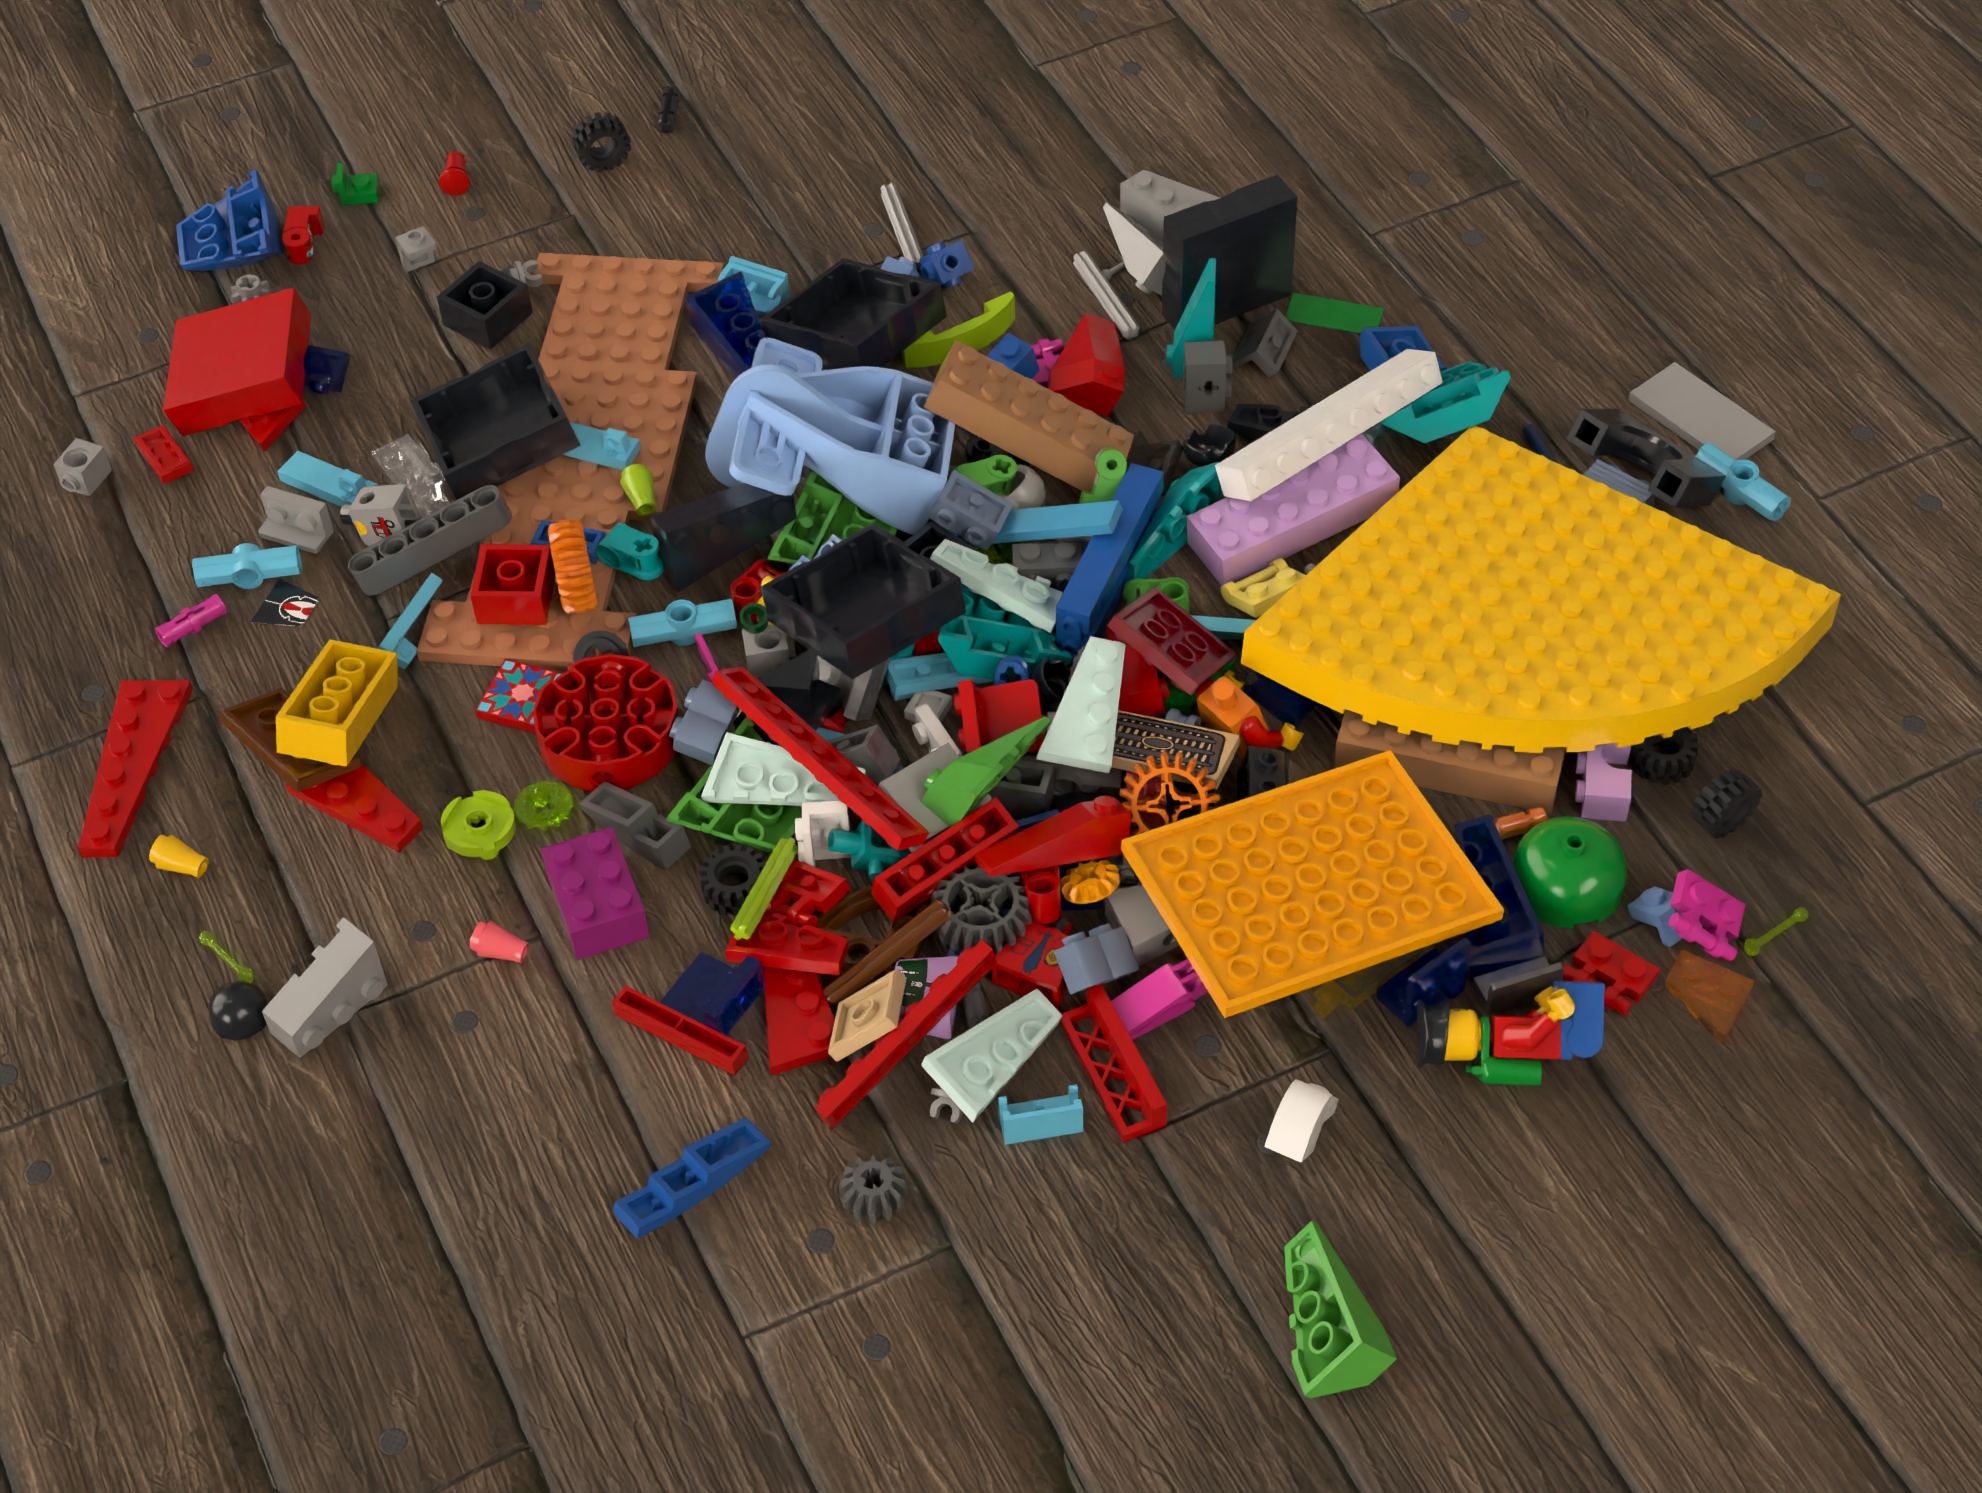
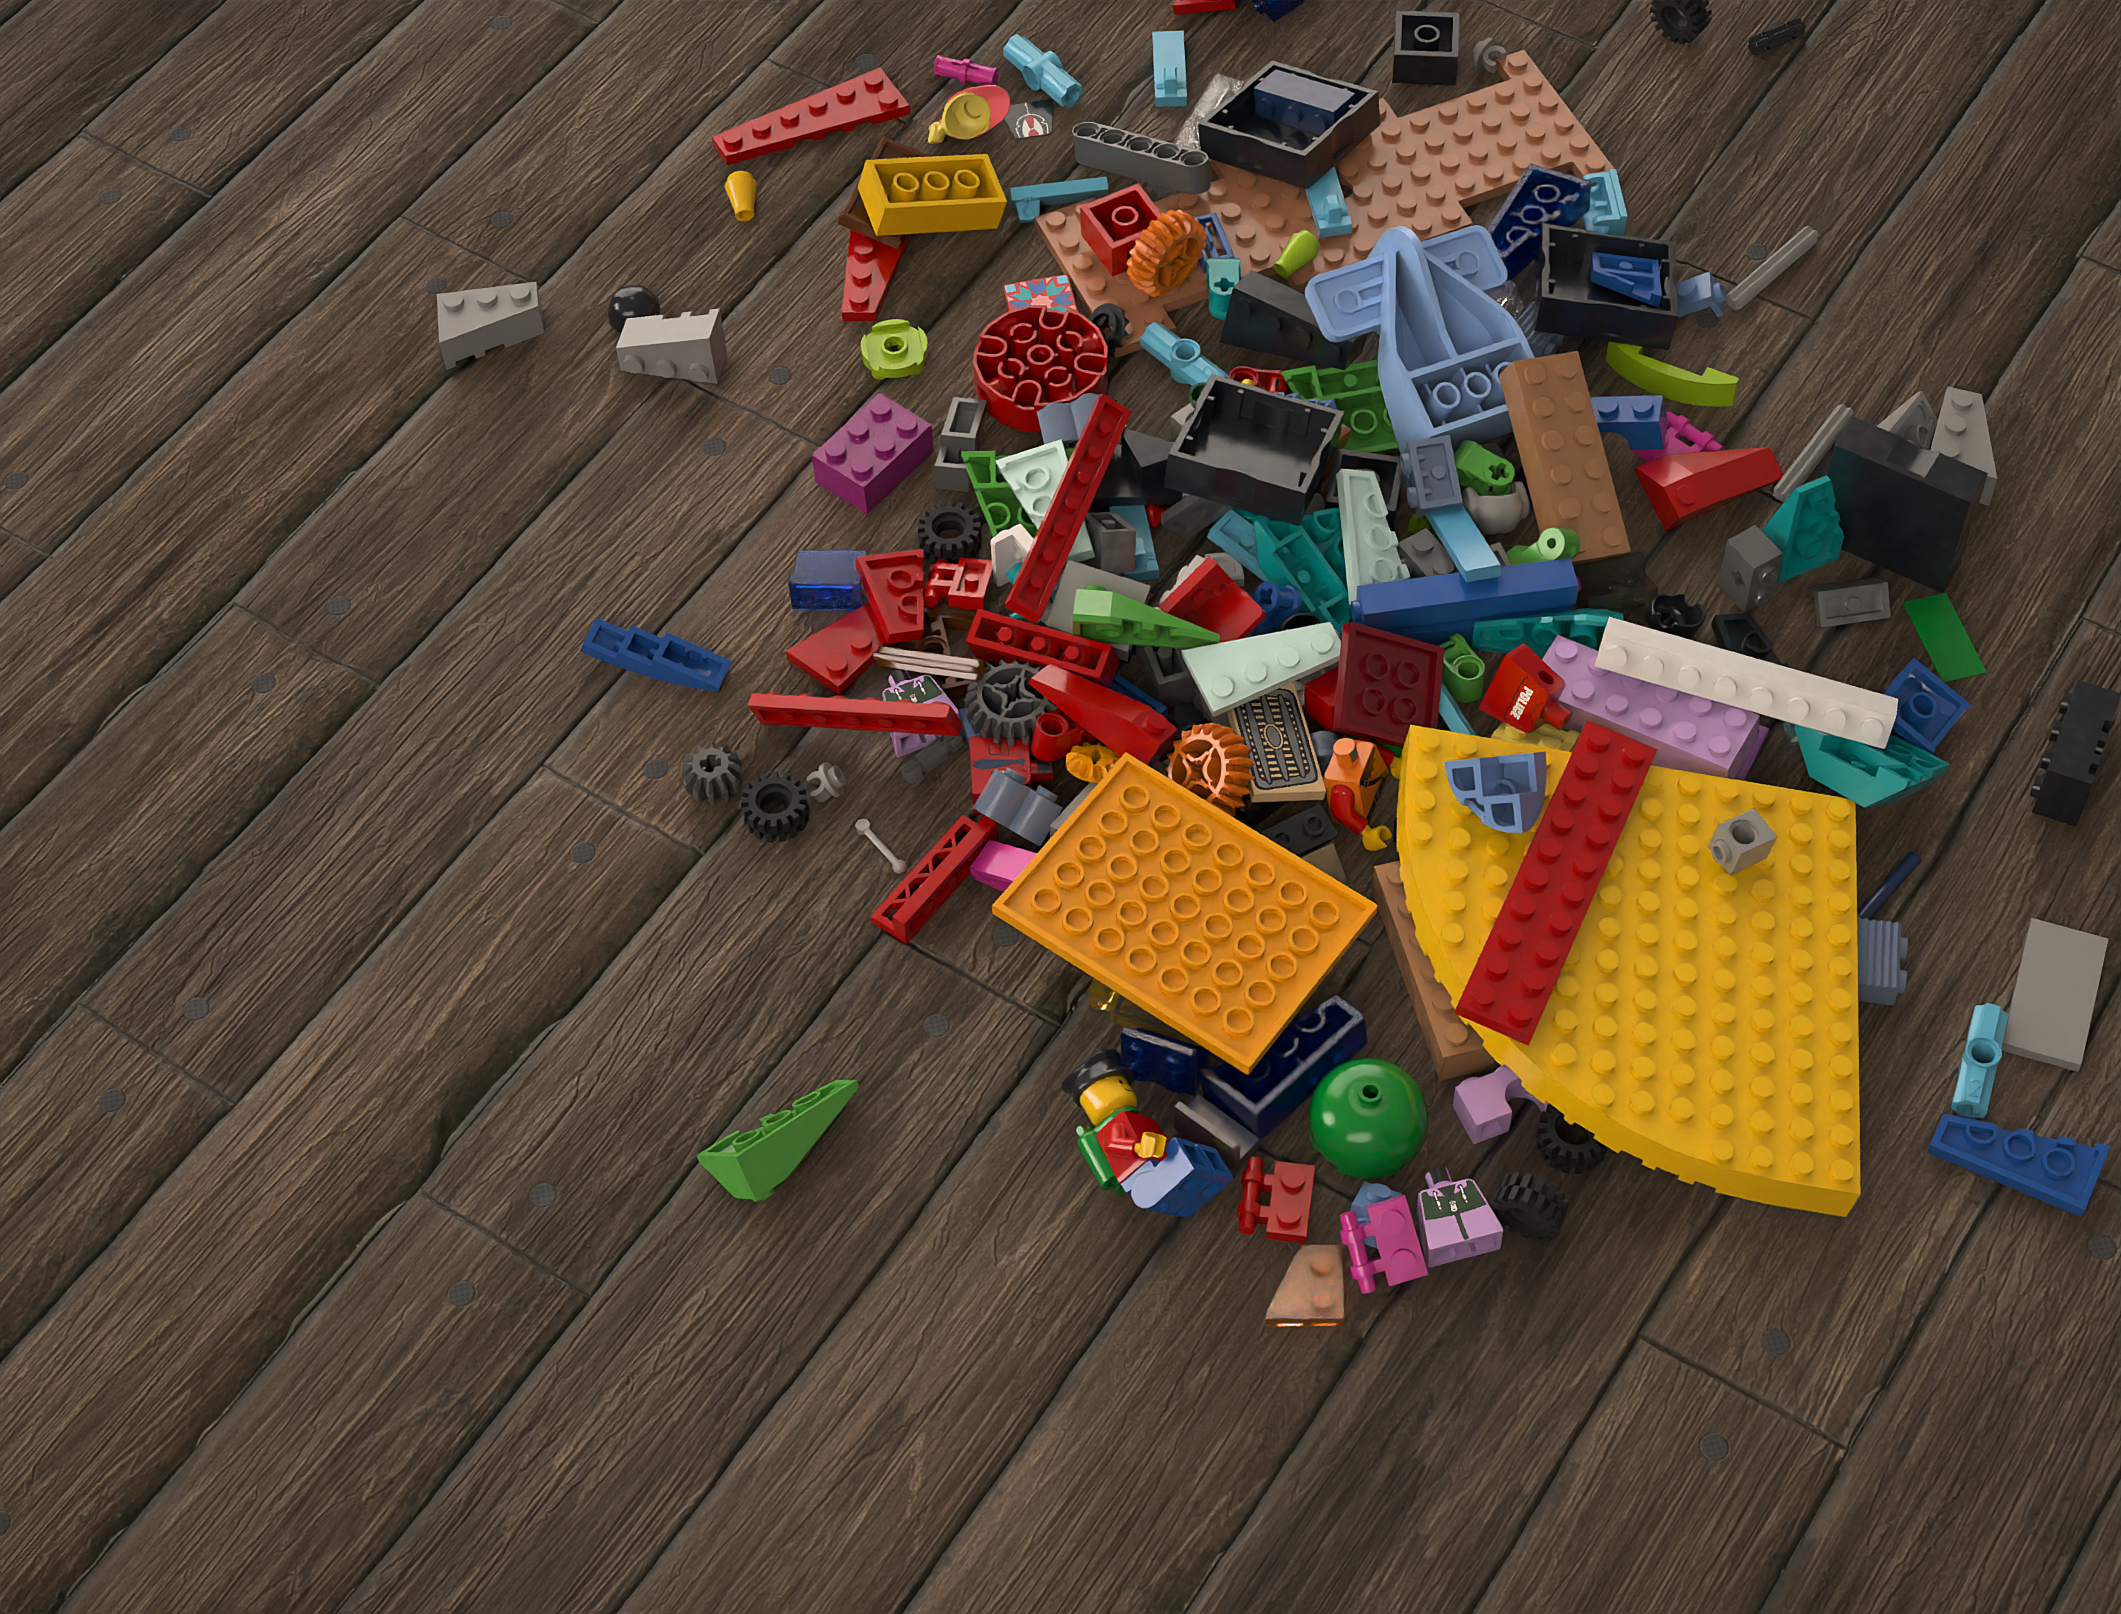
camera: 60 degrees right, 5 degrees up
(141, 1138) = (487, 318): none -> light grey wedge
(243, 974) = (669, 296): clear neon green hinge -> none
(254, 635) = (971, 113): none -> light yellow hair
(295, 520) = (1103, 71): light grey bracket -> none
(380, 512) = (1146, 111): light grey torso -> none
(482, 403) = (1301, 102): none -> dark blue brick
(498, 943) = (789, 419): coral cone -> none
(539, 795) = (928, 373): clear neon green gear -> none
(680, 1030) = (782, 562): red piece -> none
(706, 656) = (1150, 415): dark pink piece -> none
(764, 889) = (931, 552): lime axle -> none
(851, 301) = (1628, 276): none -> blue wing
(867, 1015) = (858, 680): tan tile -> none
(946, 263) = (1752, 318): blue brick -> none
(953, 1174) = (769, 790): none -> black tyre
(989, 1054) = (879, 782): light aqua wing -> none
(1014, 1097) = (863, 828): none -> light grey hinge
(1041, 1117) = (852, 850): medium azure hinge -> none
(1237, 560) = (1526, 693): none -> red torso
(1300, 1119) = (955, 1024): white brick -> none
(1362, 600) = (1501, 789): none -> medium blue brick
(1467, 616) = (1555, 883): none -> red plate
(1493, 492) = (1742, 841): none -> light grey brick
(1505, 292) = (2076, 753): none -> black wedge
(1519, 822) = (1397, 1052): orange axle -> none
(1679, 476) = (1956, 933): black arch -> none
(1703, 850) = (1455, 1220): none -> lavender torso
(1752, 946) = (1391, 1306): clear neon green hinge -> none
(1843, 501) = (2032, 1164): none -> blue wing

